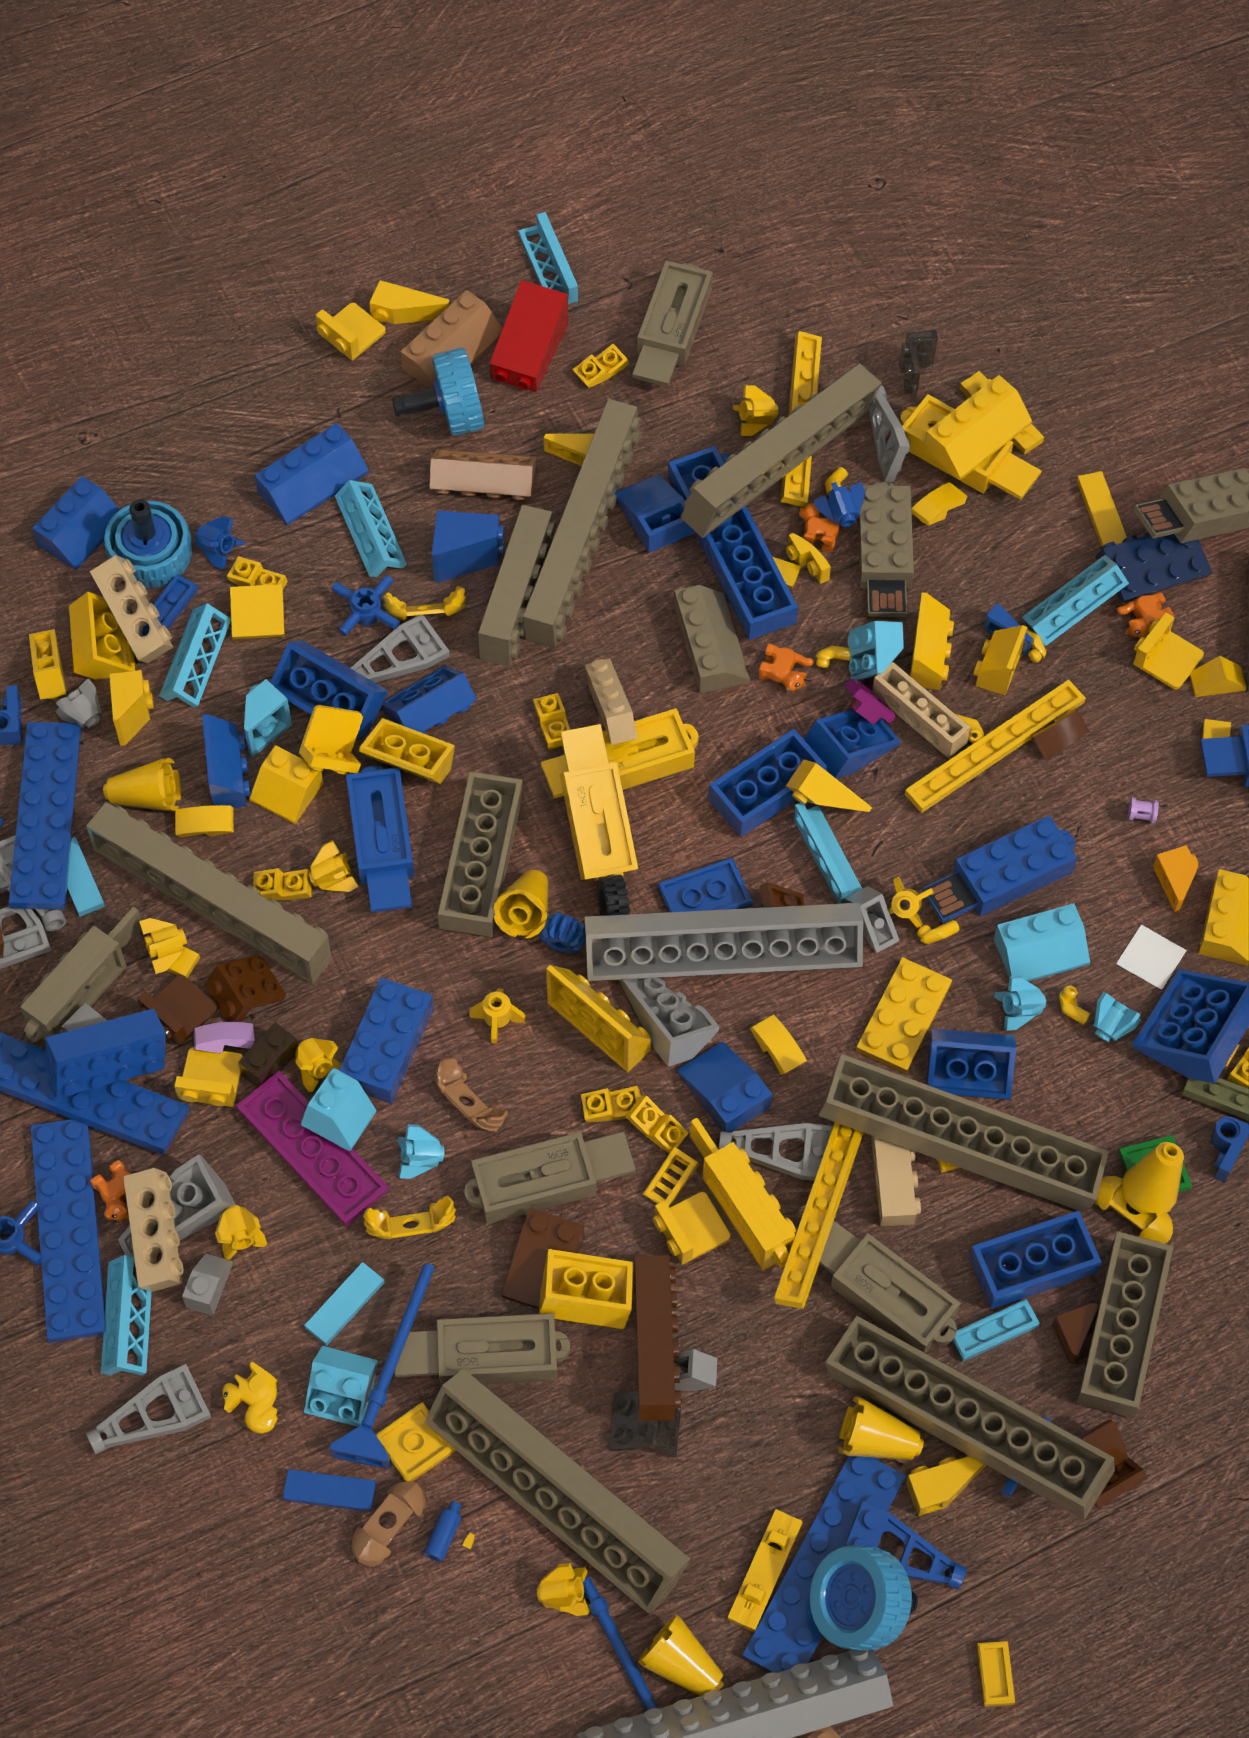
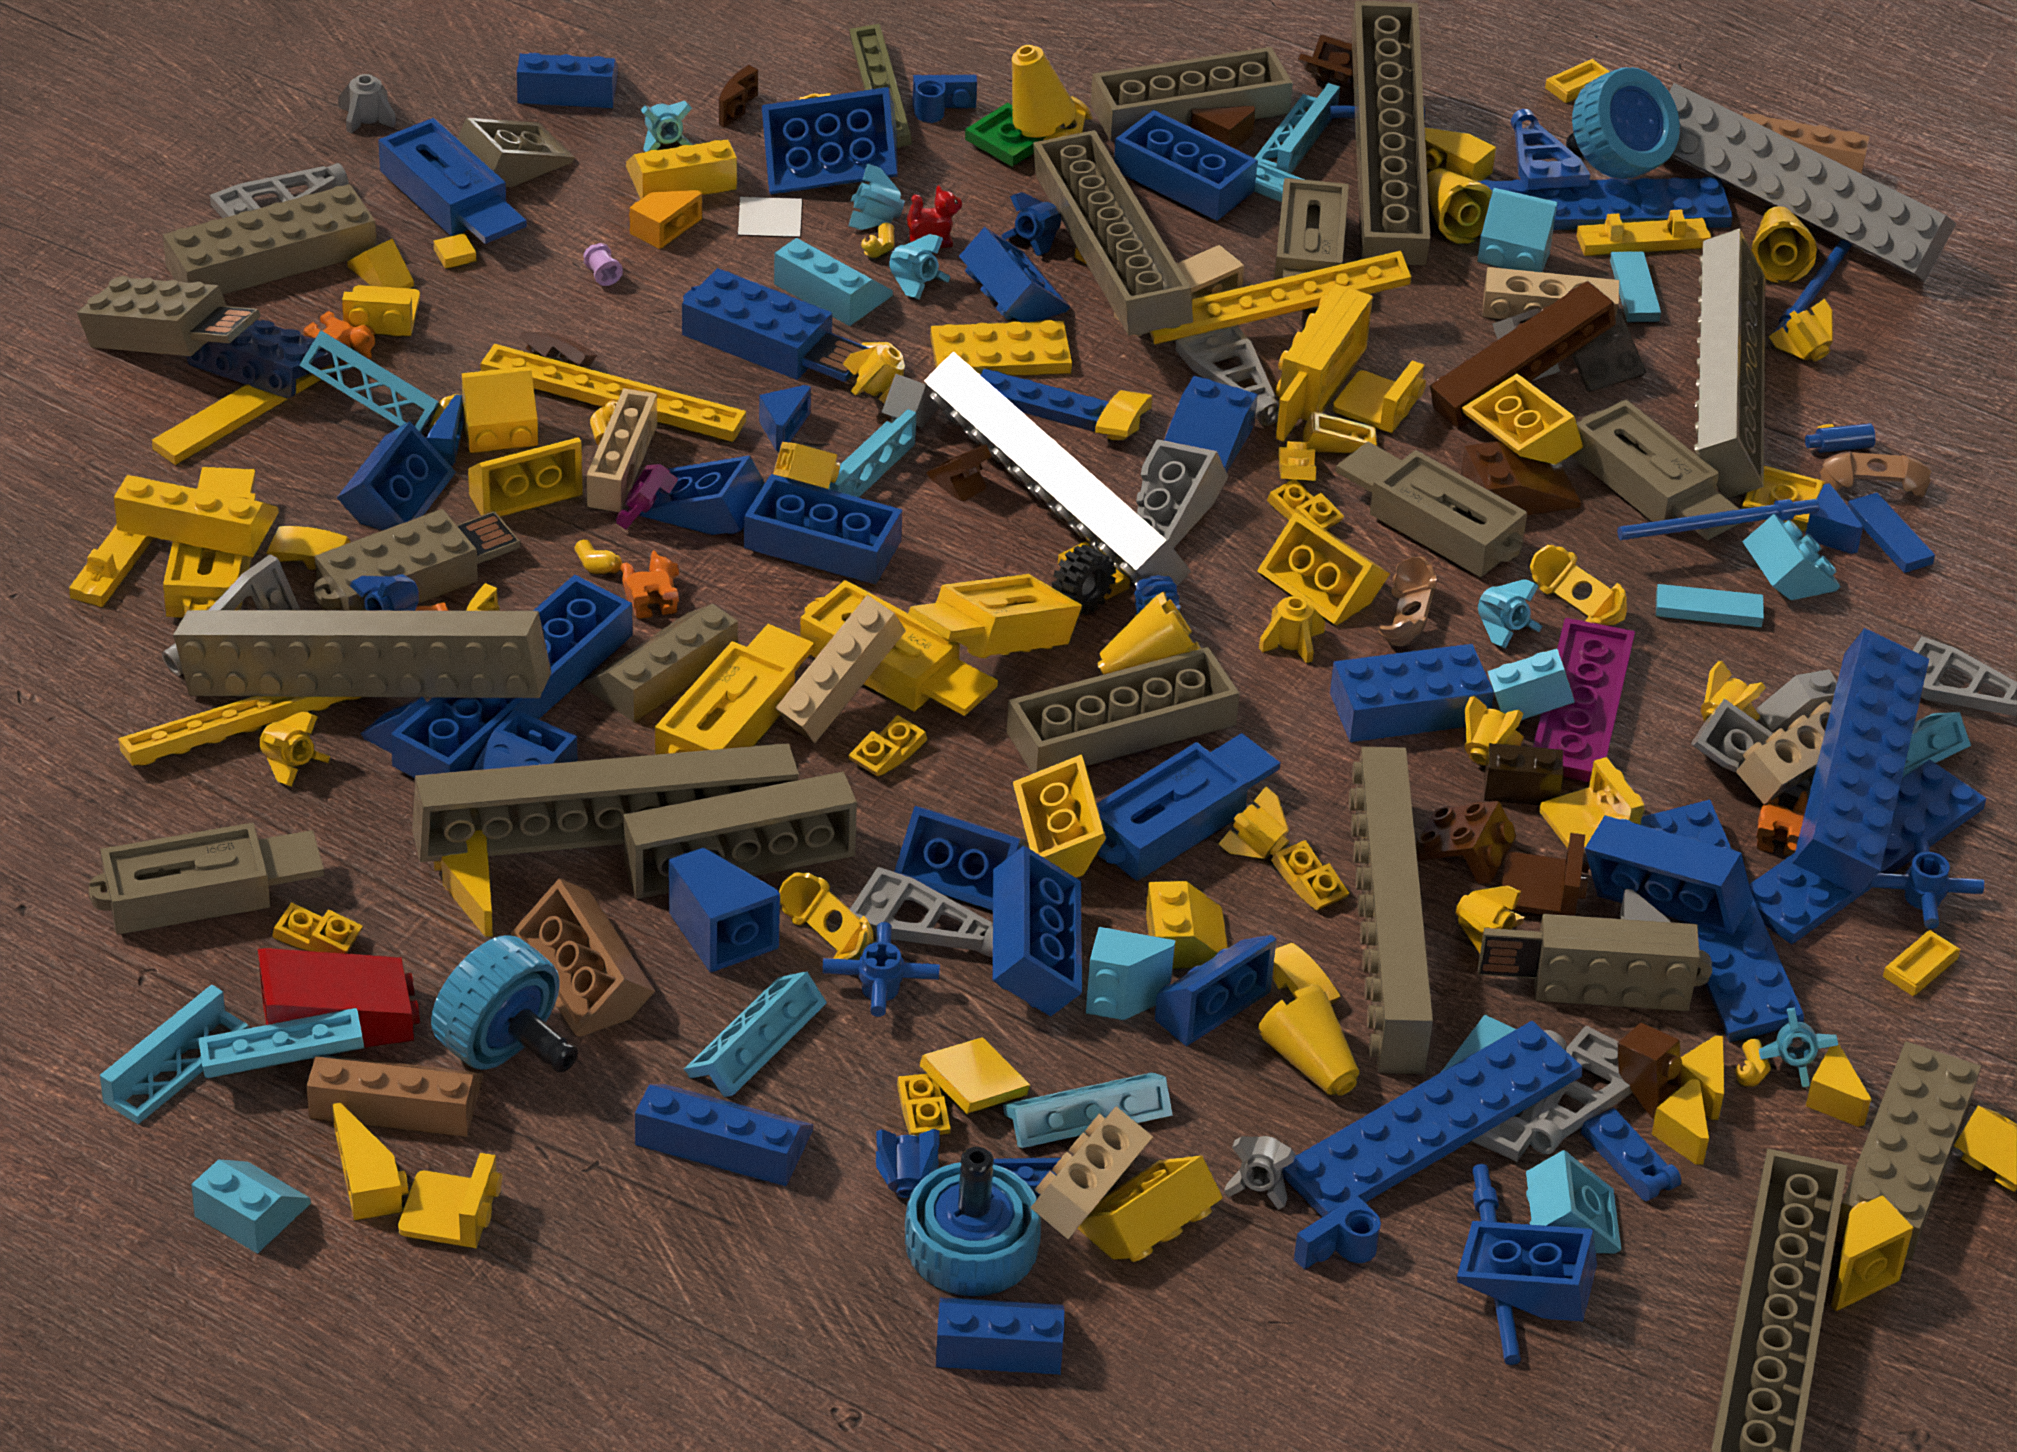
camera: 125 degrees left, 20 degrees down
(47, 664) = (1230, 1240): yellow slope -> none
(106, 1243) = (1861, 762): none -> blue brick
(130, 703) = (1224, 1105): yellow slope -> none
(216, 1035) = (1539, 823): lavender slope -> none
(259, 1393) = (1871, 612): yellow animal -> none
(331, 739) = (1123, 876): yellow bracket -> none
(420, 247) = (246, 1202): none -> medium azure slope
(497, 310) = (280, 1043): none -> medium azure fence
(538, 1069) = (1322, 570): none -> yellow slope
(596, 1018) = (1228, 534): yellow slope -> none
(636, 646) = (735, 695): none -> yellow piece
(701, 1468) = (1519, 291): none -> tan brick
(705, 889) = (996, 540): blue tile -> none
(709, 1516) = (1635, 286): none -> medium azure tile
(805, 1448) = (1517, 231): none -> medium azure slope
(834, 1007) = (1047, 401): none -> blue plate
(874, 648) = (577, 502): medium azure slope -> none
(905, 829) = (784, 413): none -> blue slope
(917, 354) = (112, 629): clear smoke bracket -> none
(972, 577) = (396, 480): none -> blue slope
(1030, 1108) = (1035, 222): none -> blue brick
(1038, 1391) = (1307, 130): none -> medium azure fence
(1064, 1040) = (933, 220): none -> red animal

